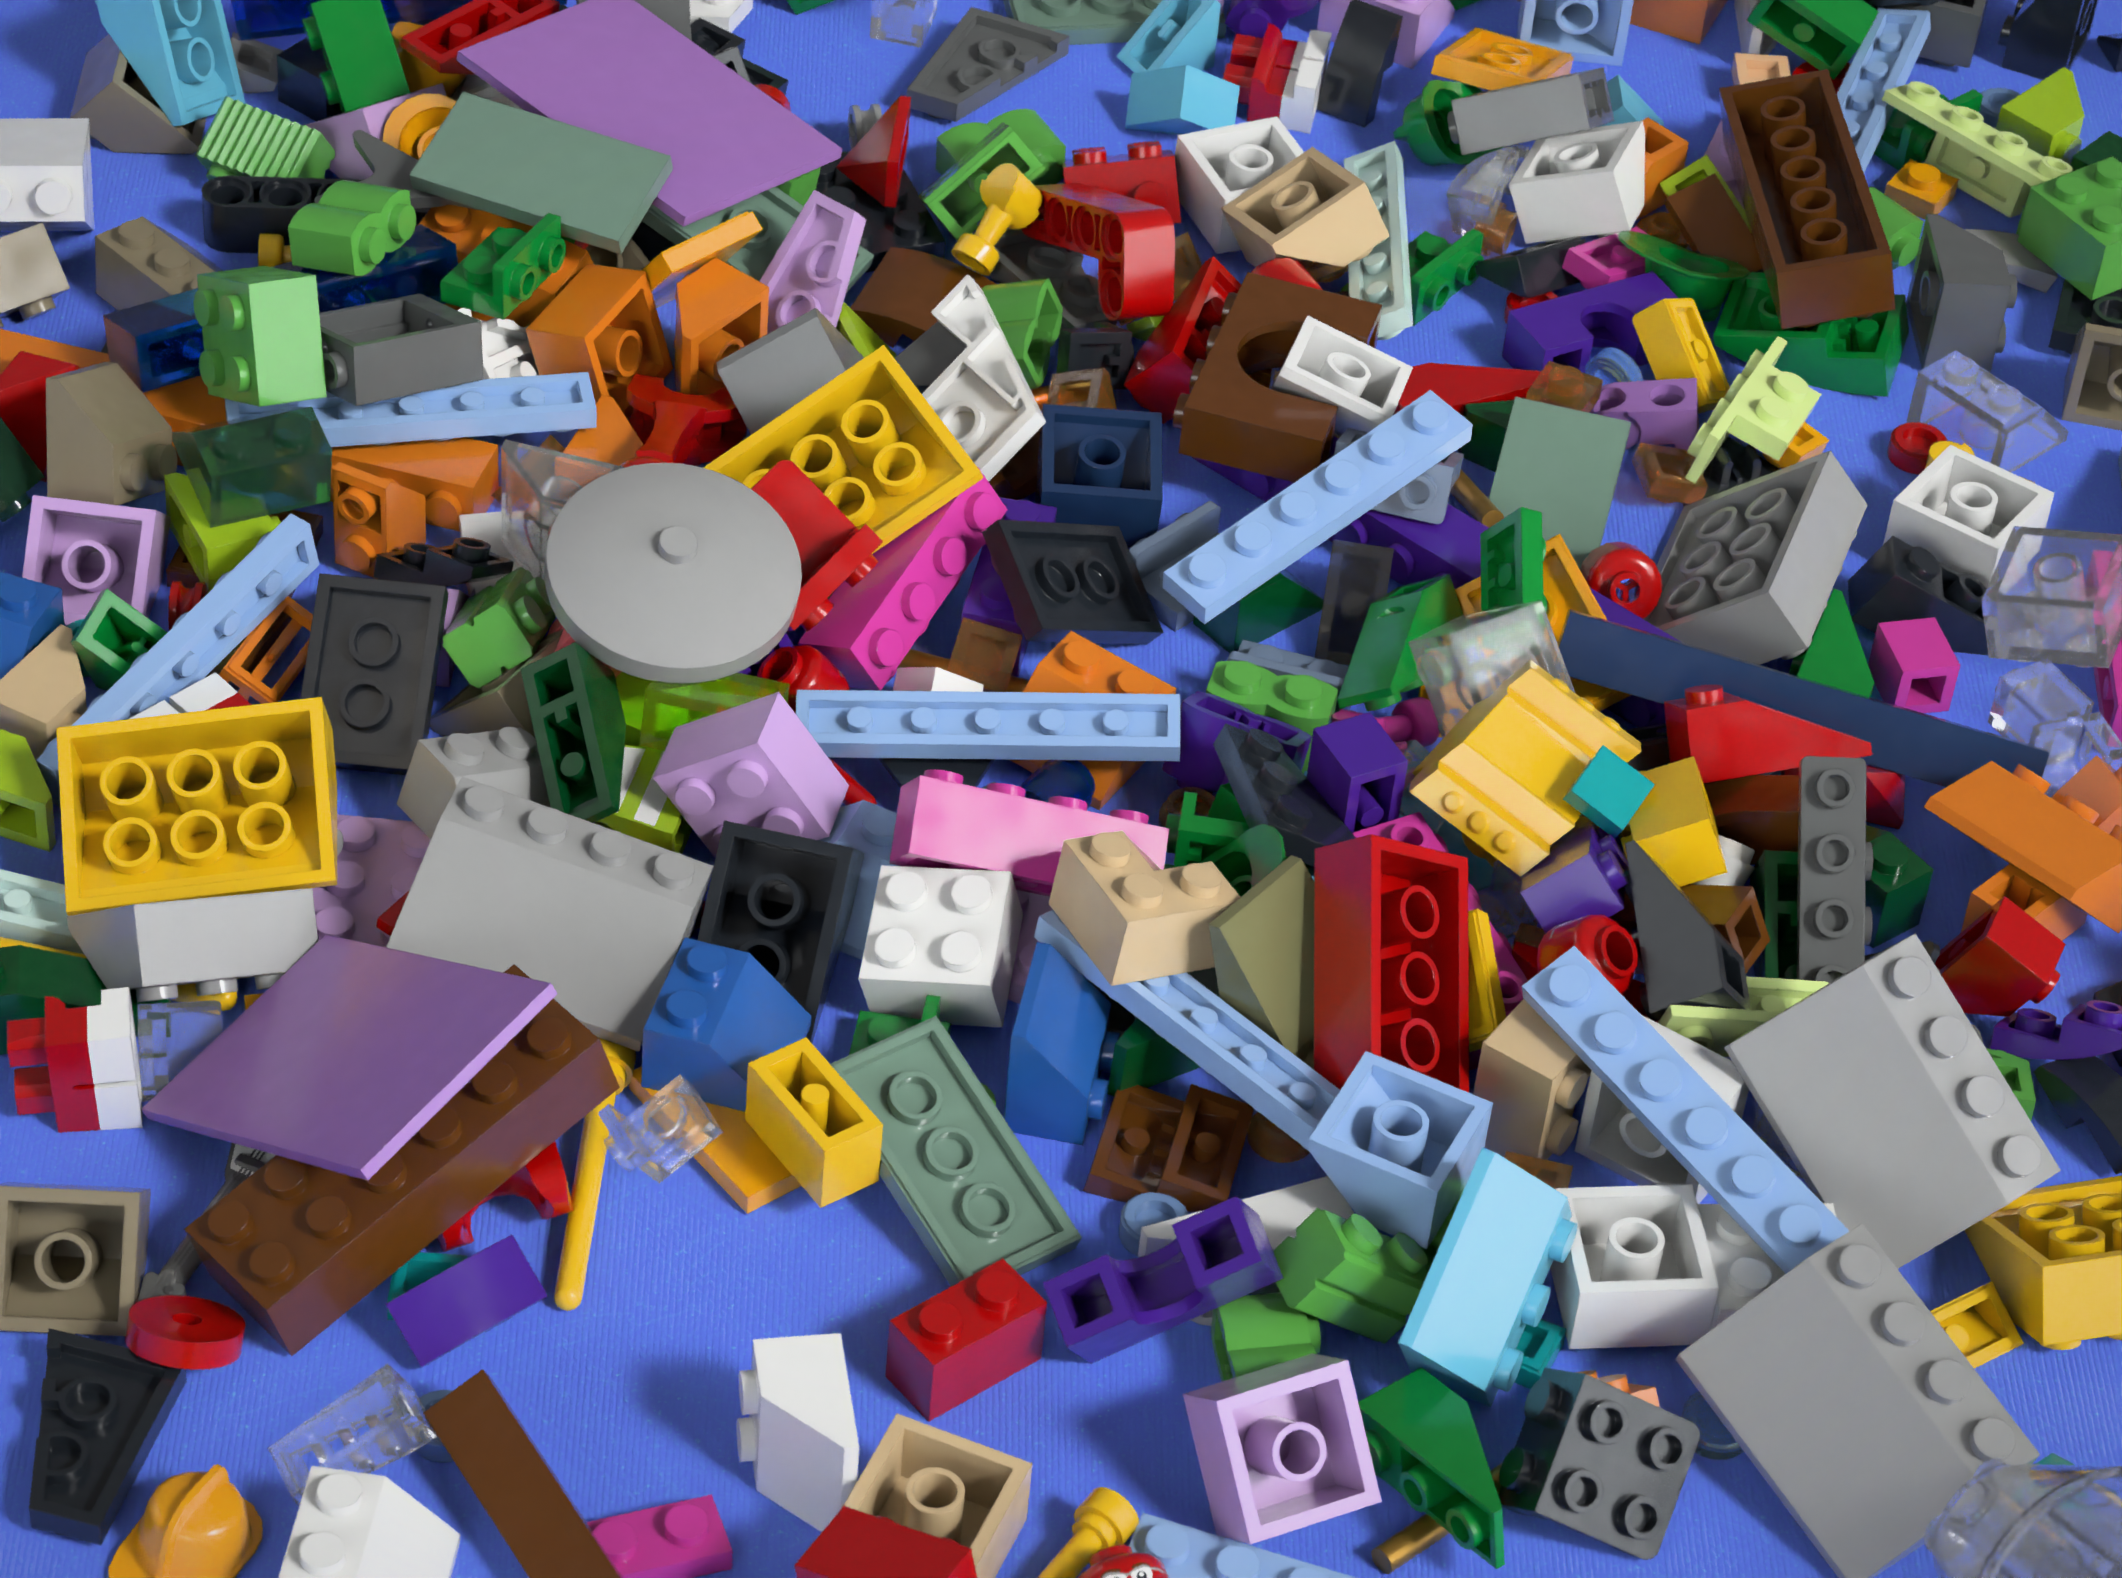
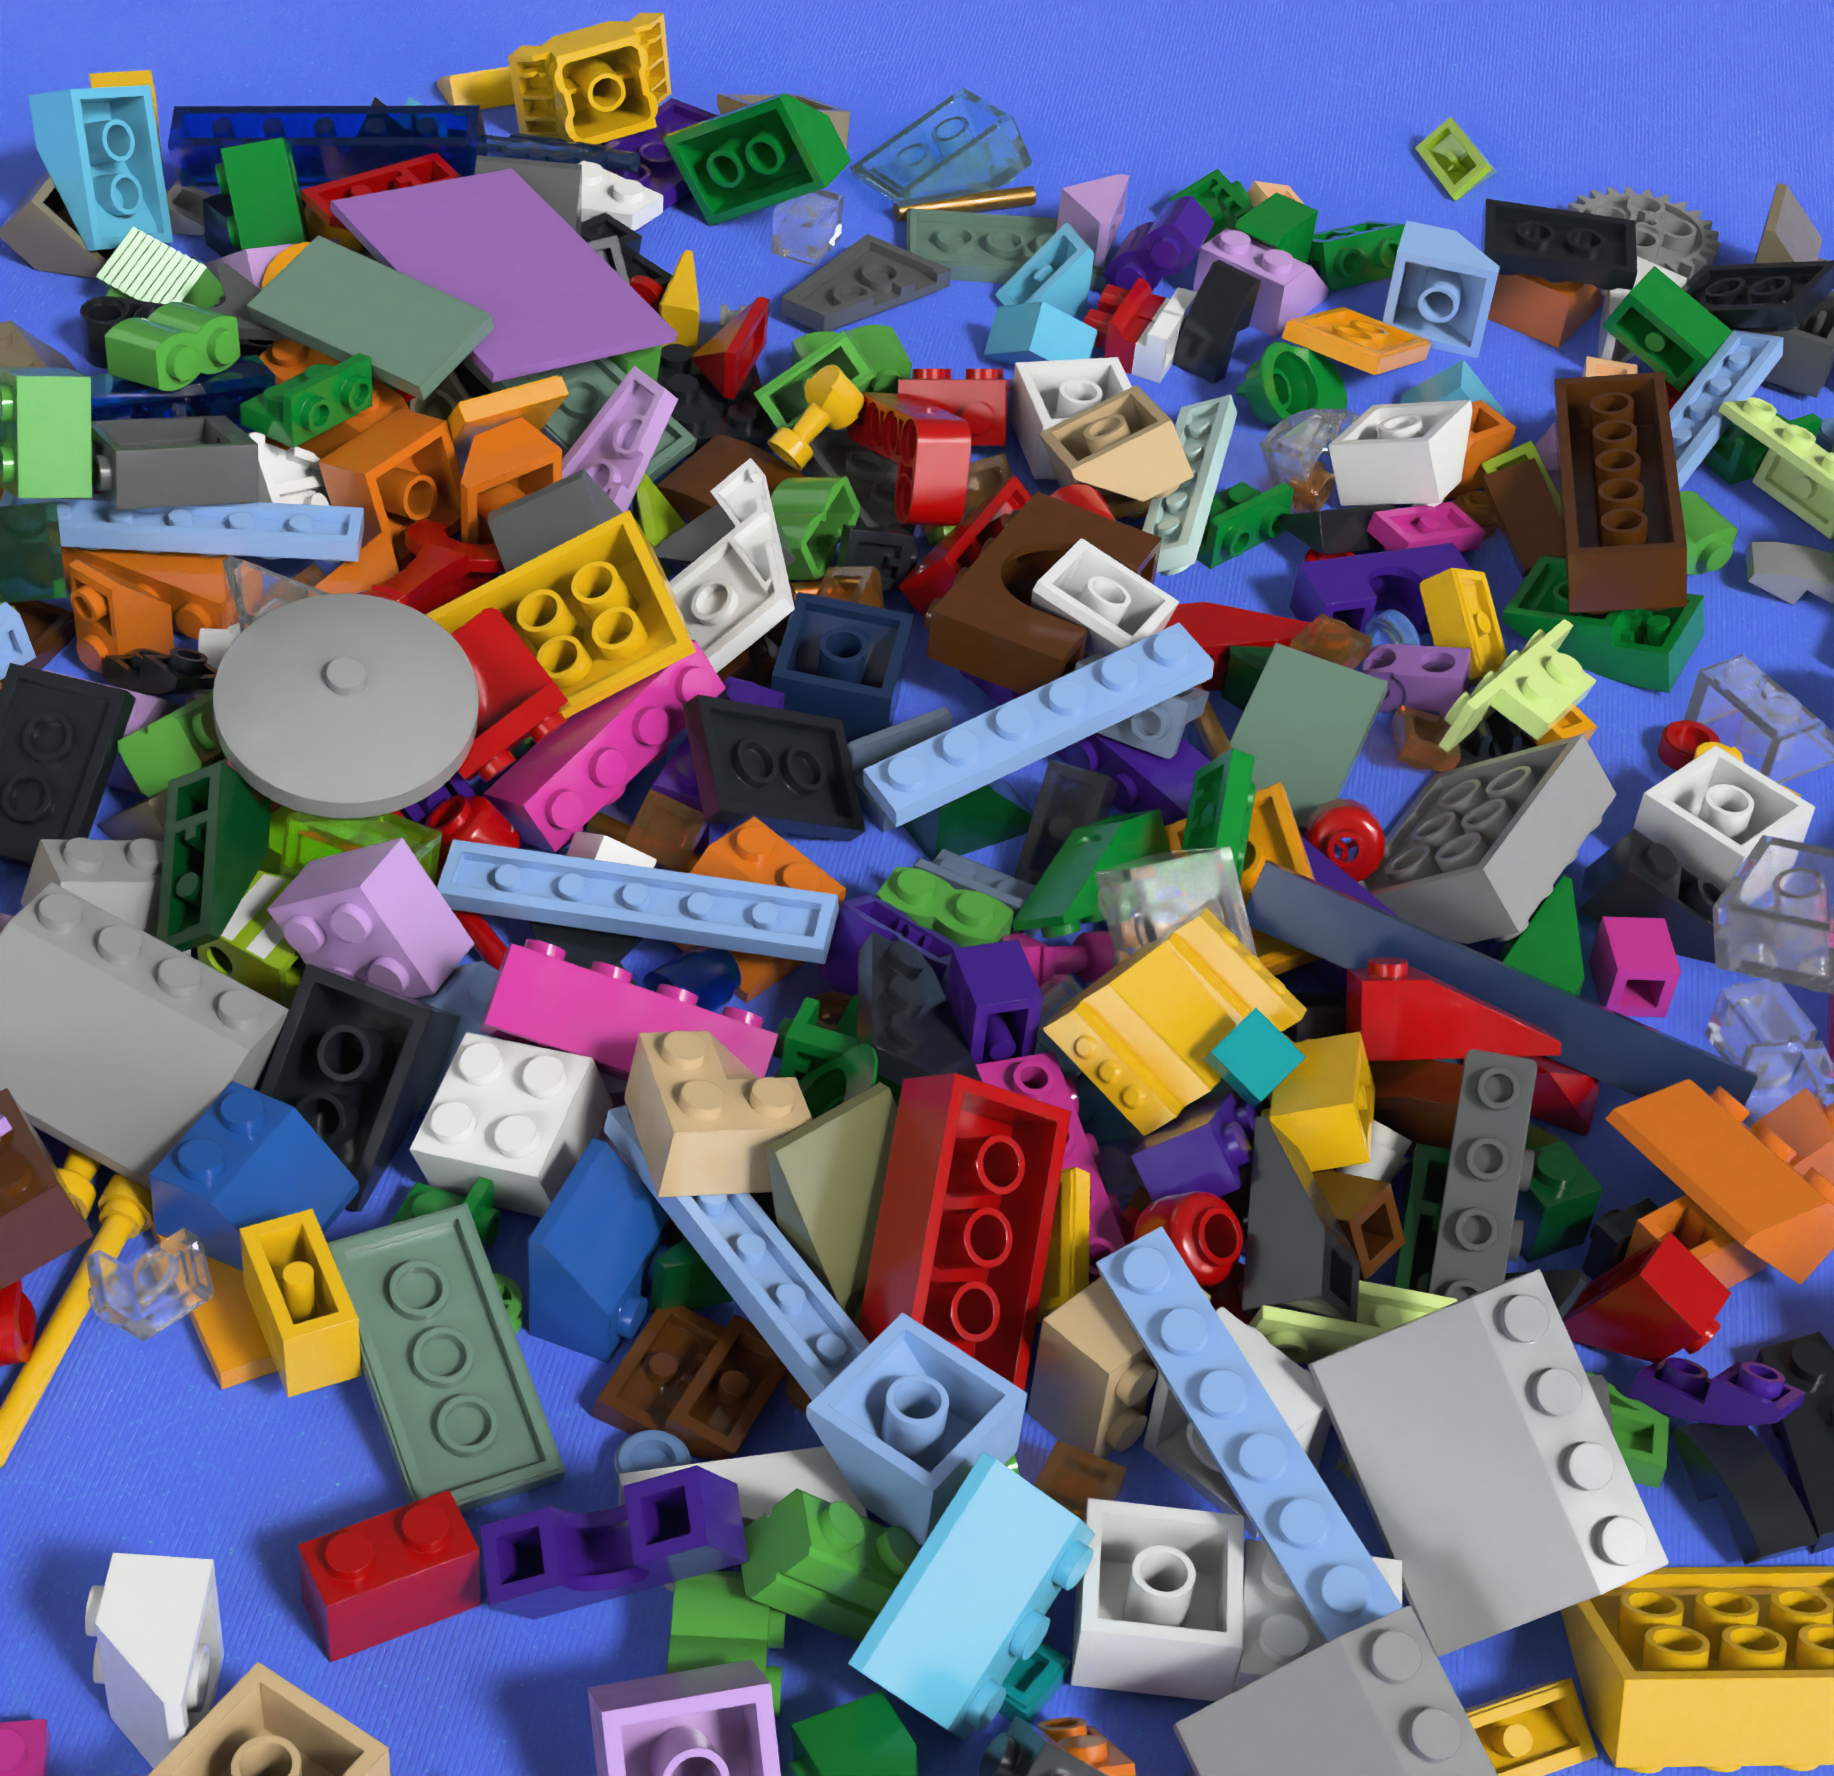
camera: 10 degrees right, 0 degrees up
(808, 97) = (681, 303): none -> yellow slope
(1530, 111) = (1366, 378): window -> none
(1687, 272) = (1489, 550): green piece -> none
(1921, 188) = (1746, 502): light orange plate -> none
(1948, 911) = (1612, 1236): none -> black plate
(1958, 295) = (1759, 601): dark grey slope -> none

